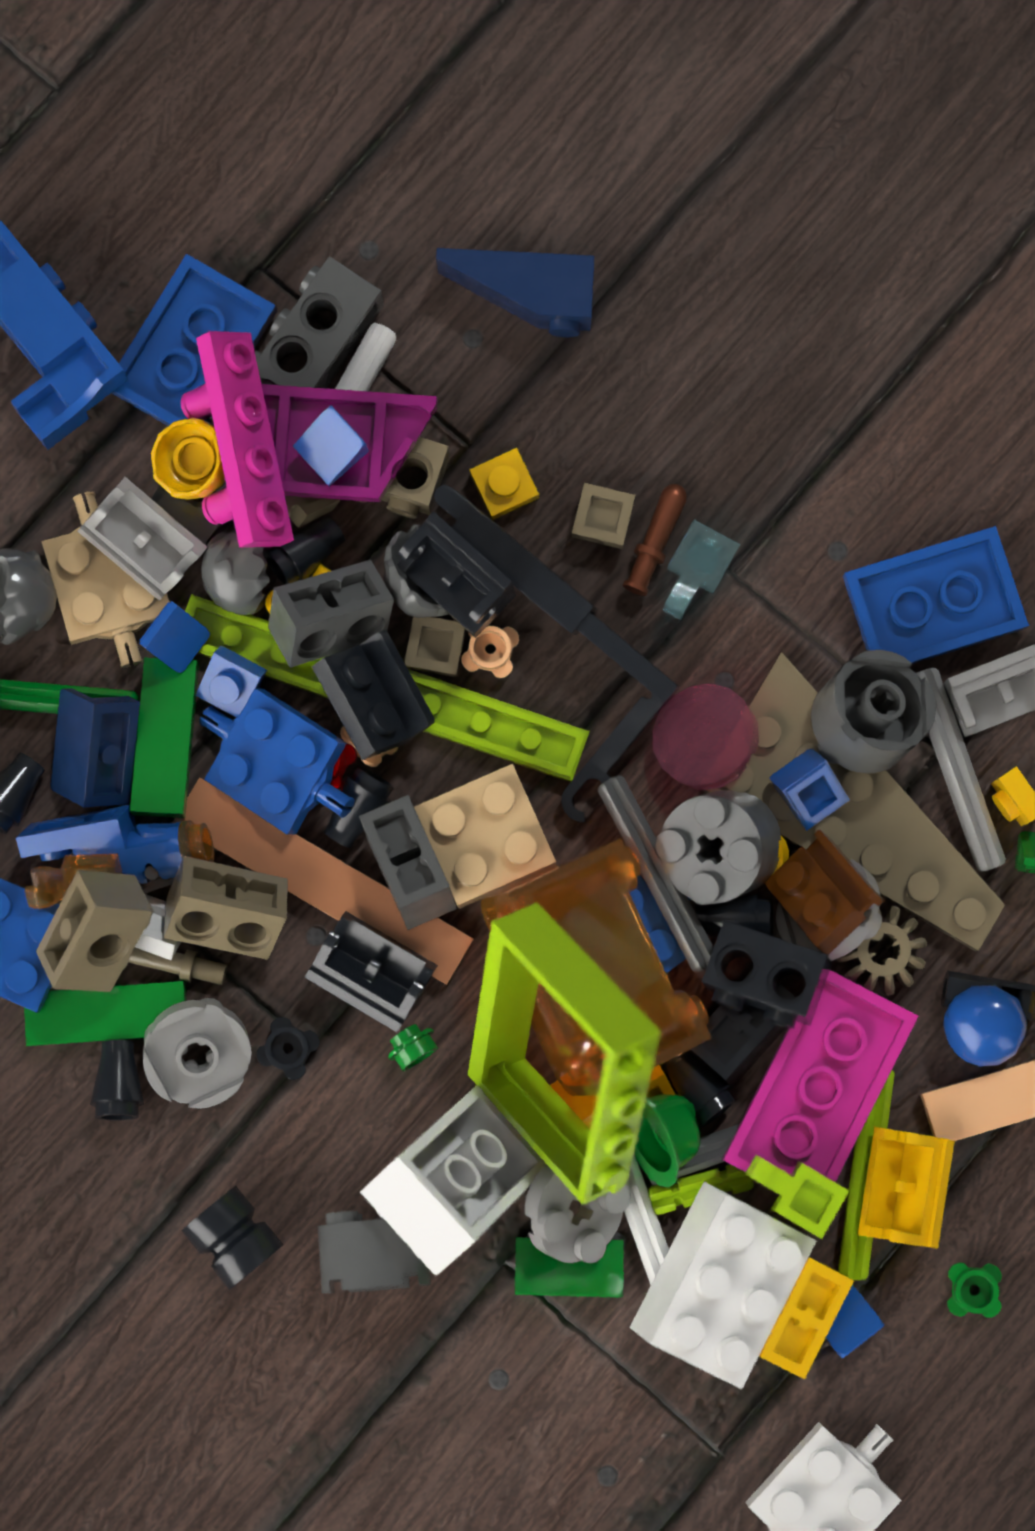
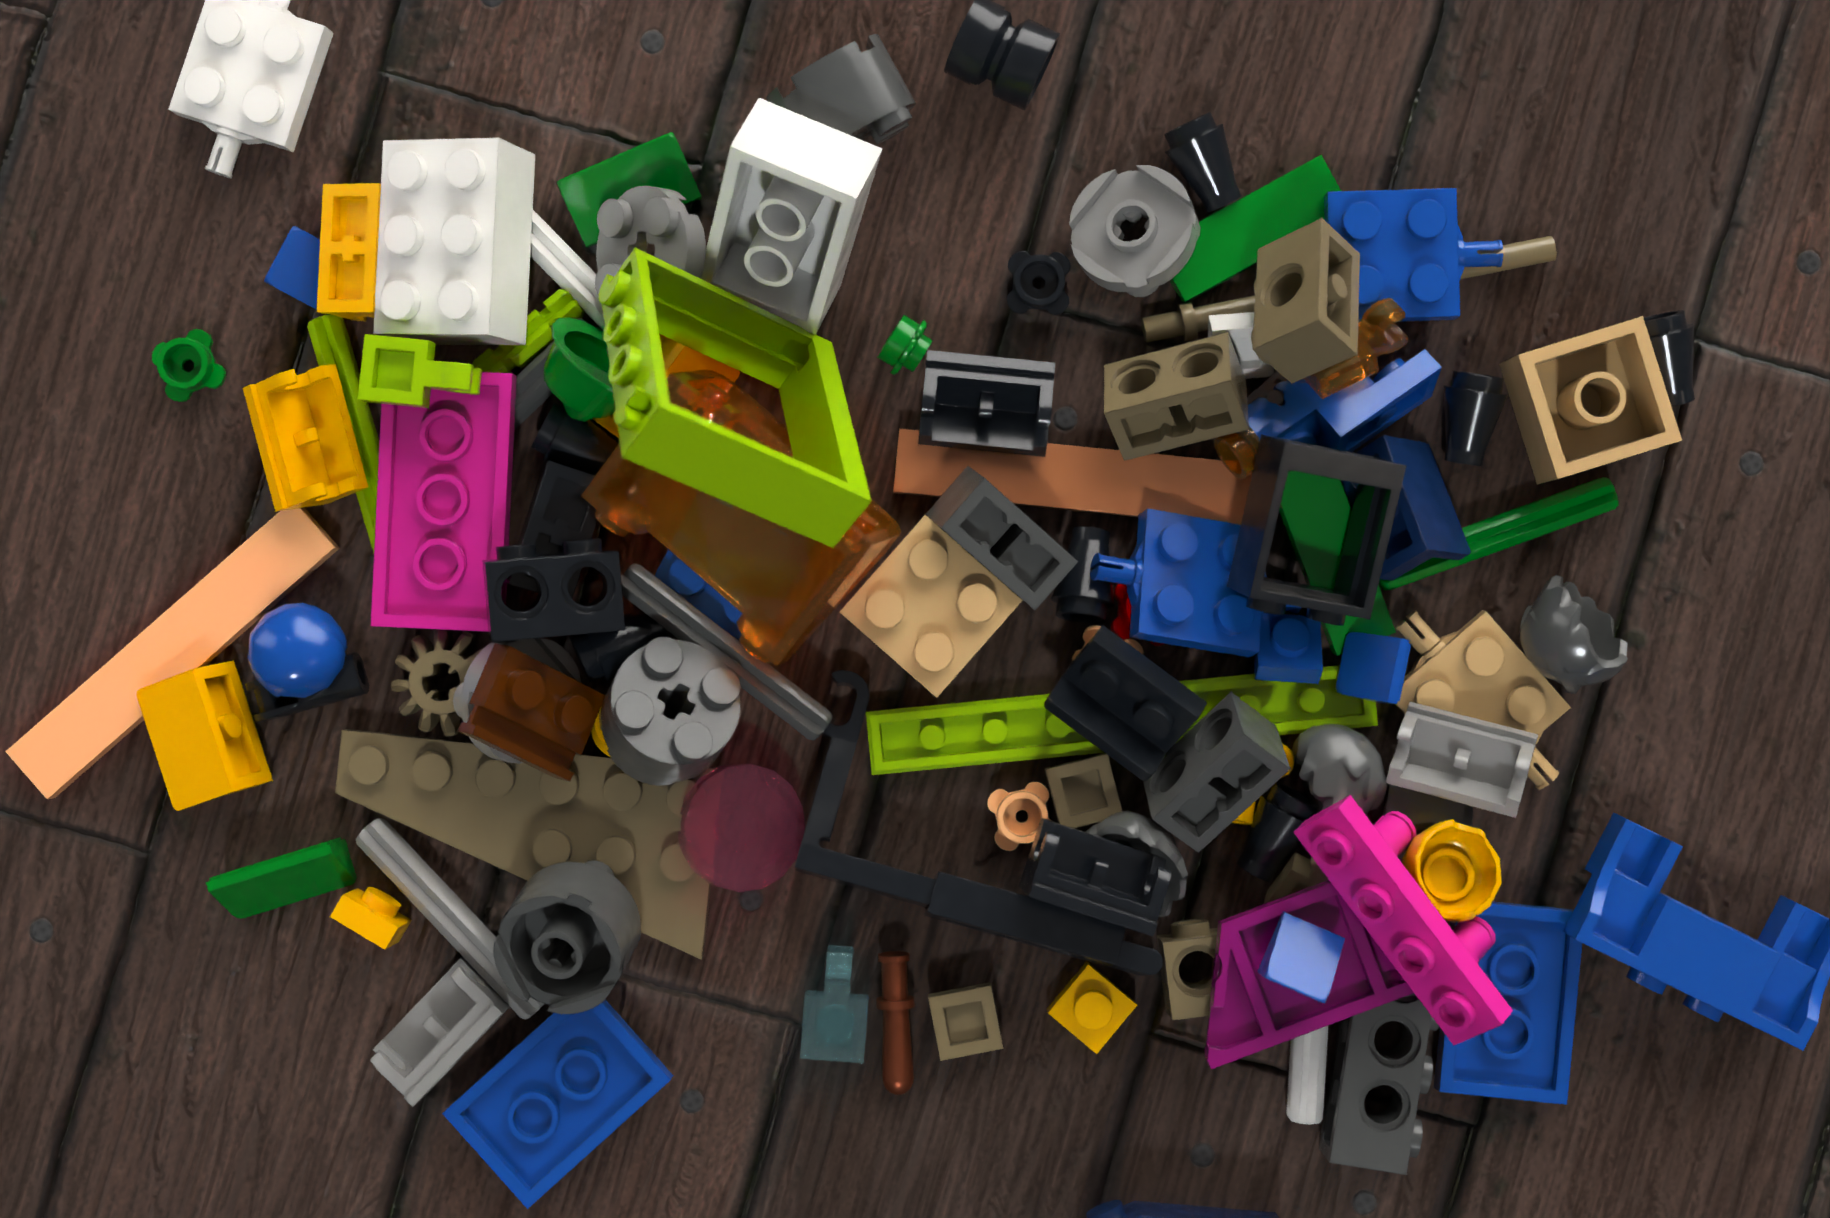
camera: 155 degrees right, 5 degrees up
(138, 729) = (1365, 539): none -> black window
(809, 788) = (601, 822): blue slope -> none

